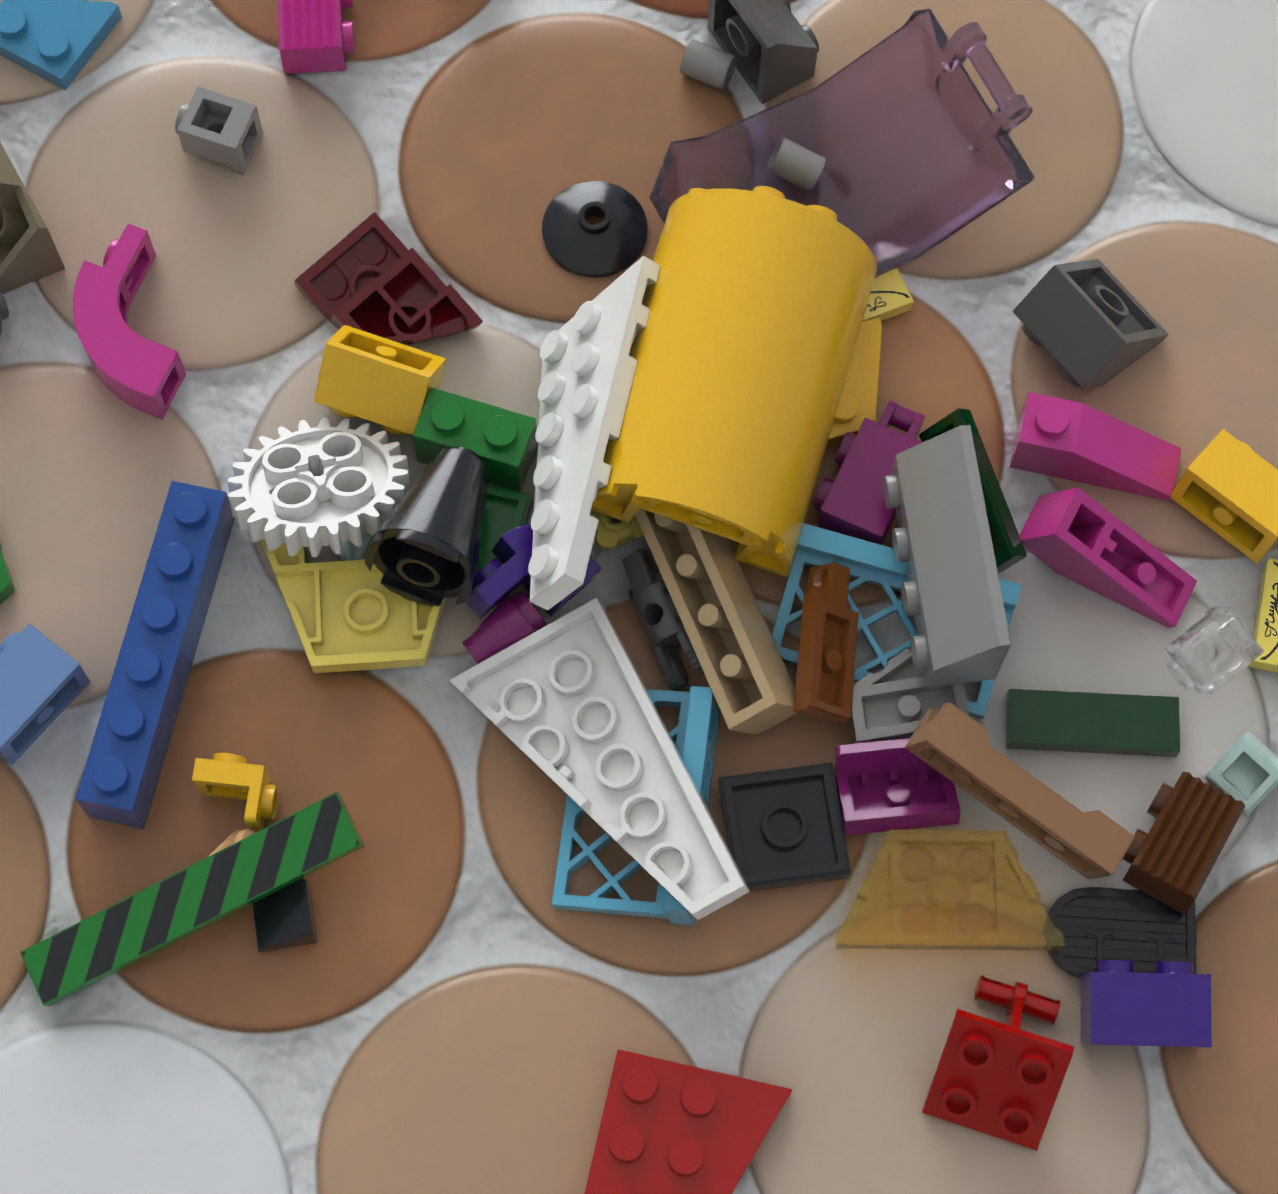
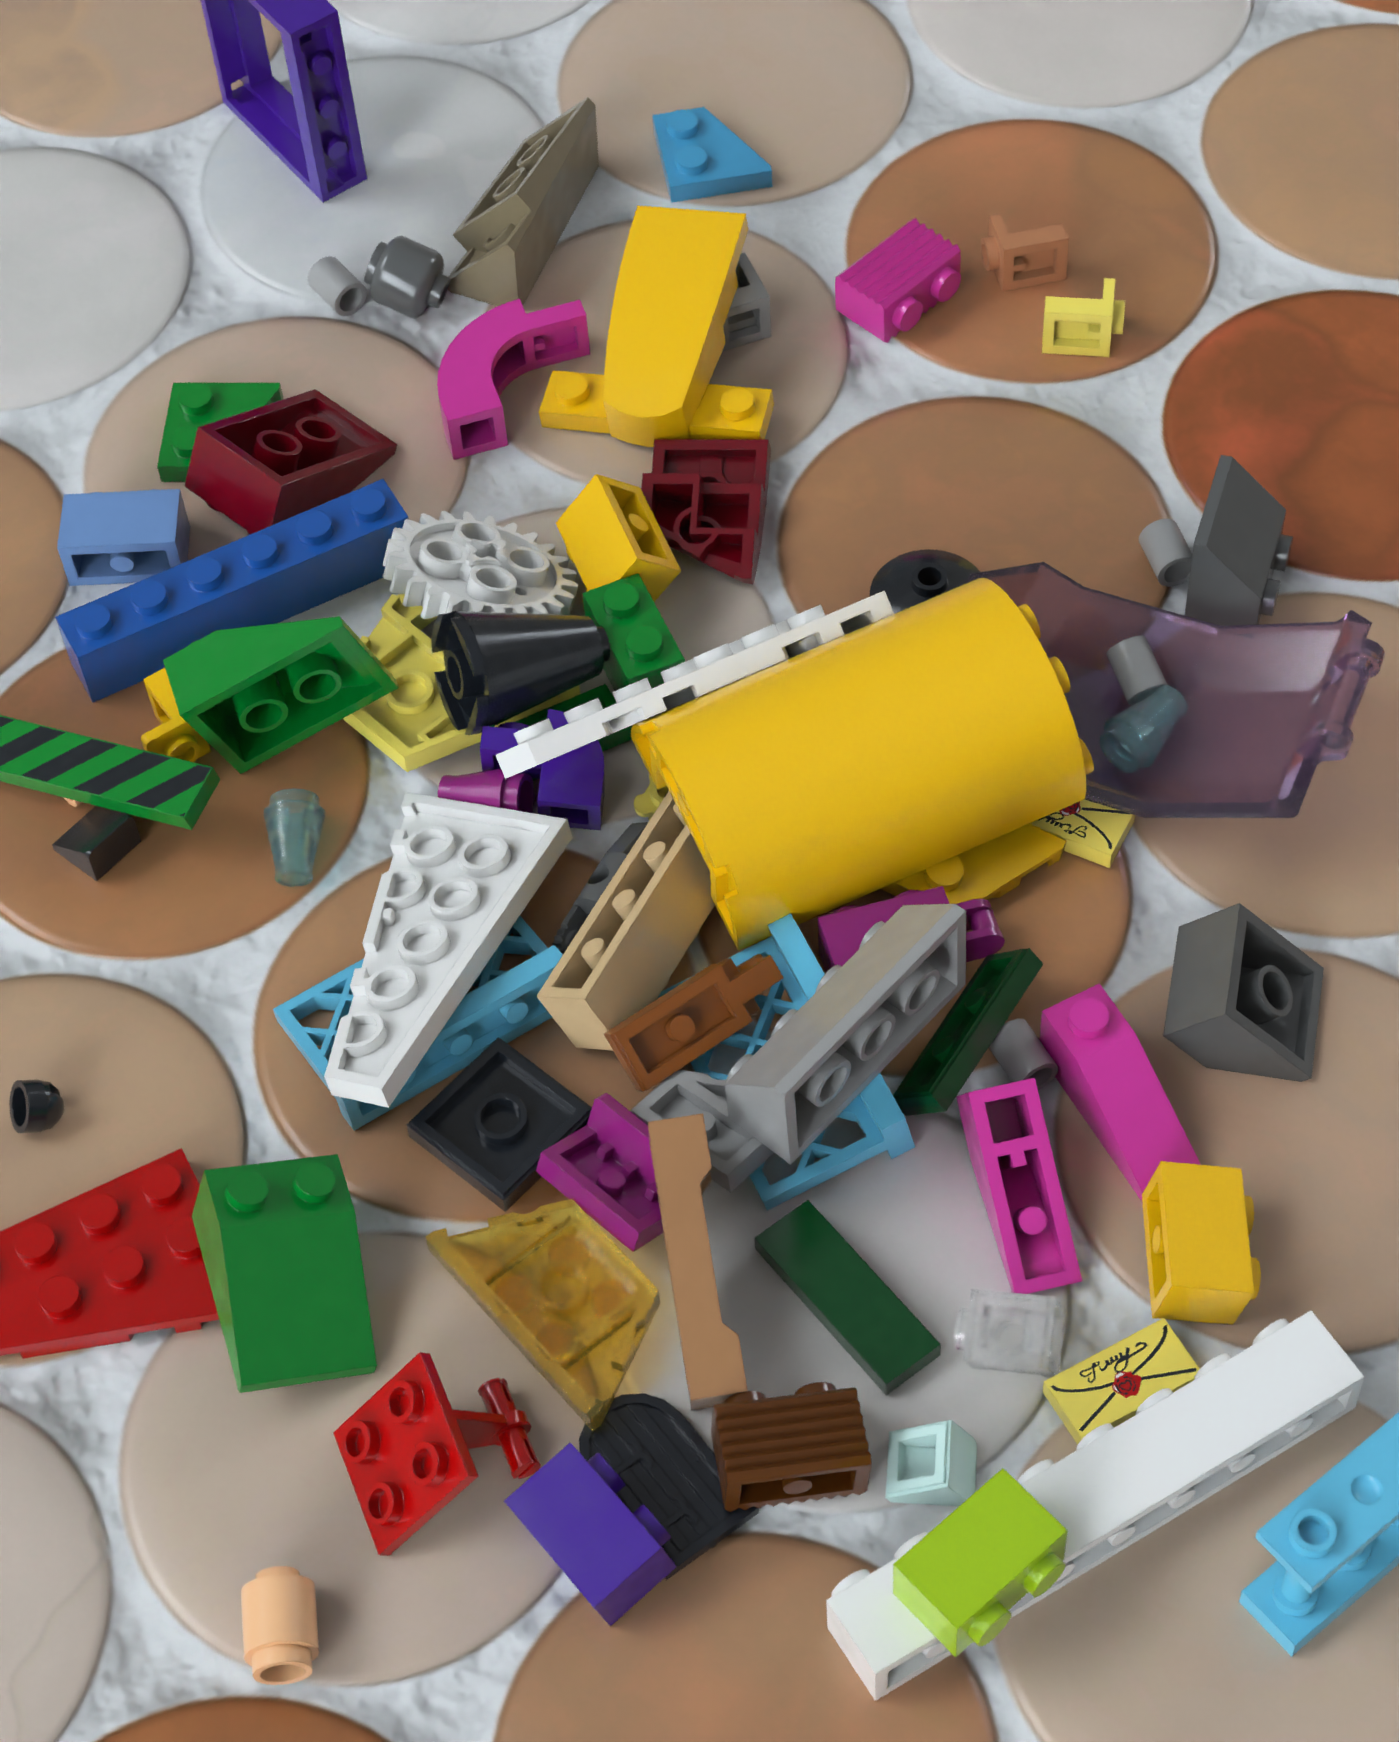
camera: 55 degrees right, 15 degrees down
(63, 531) = (283, 459): none -> dark red slope
(223, 198) = (666, 339): none -> yellow slope
(292, 708) = (273, 685): none -> green slope
(416, 779) = (294, 832): none -> clear light blue cone
(489, 1125) = (34, 1106): none -> black hinge
(793, 1054) = (285, 1271): none -> green slope
(846, 195) = (1139, 732): none -> clear light blue cone
(1018, 478) = (1023, 1054): none -> light grey hinge

